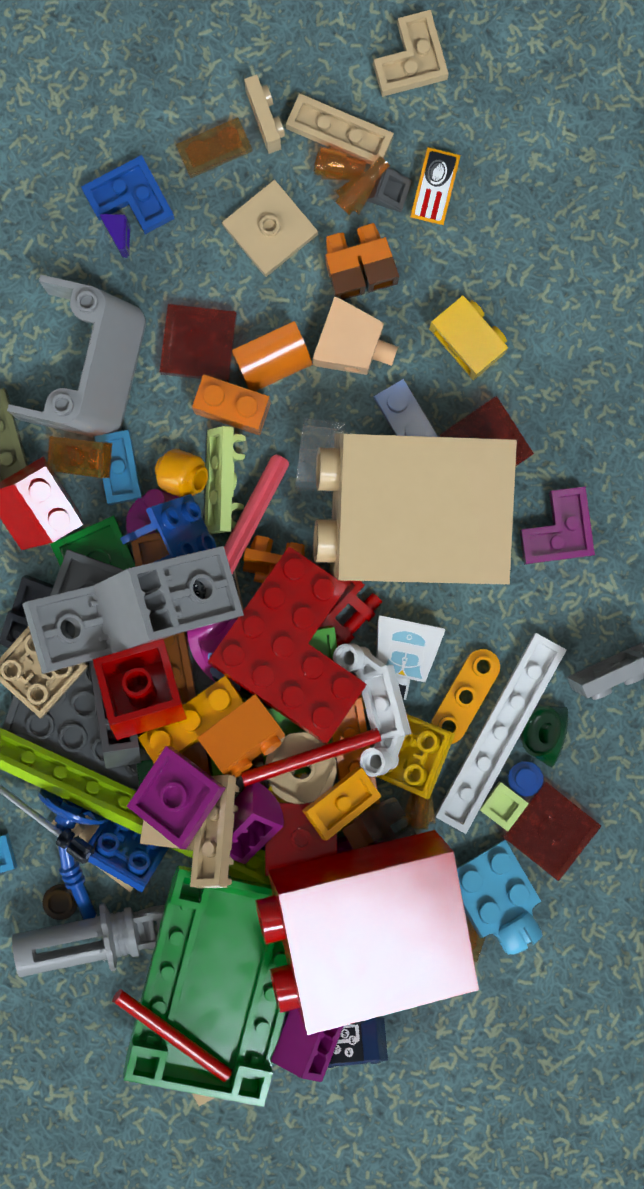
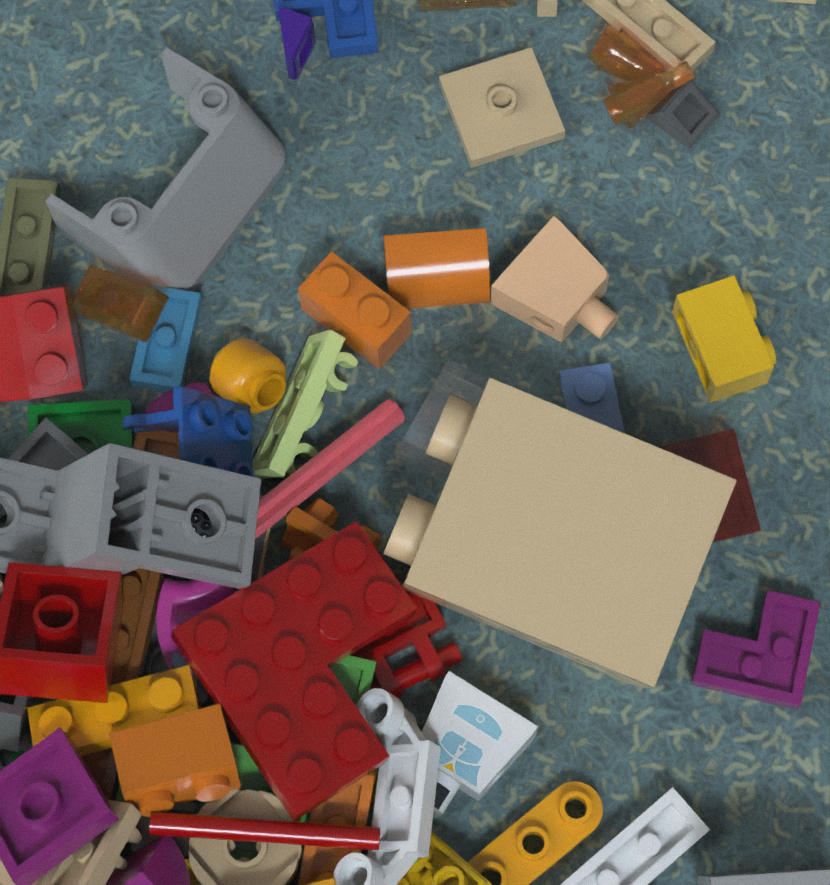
camera: 25 degrees right, 15 degrees down
(198, 342) = (343, 213): clear red plate -> none
(373, 256) = (628, 187): hips -> none
(435, 186) = (749, 129): slope -> none

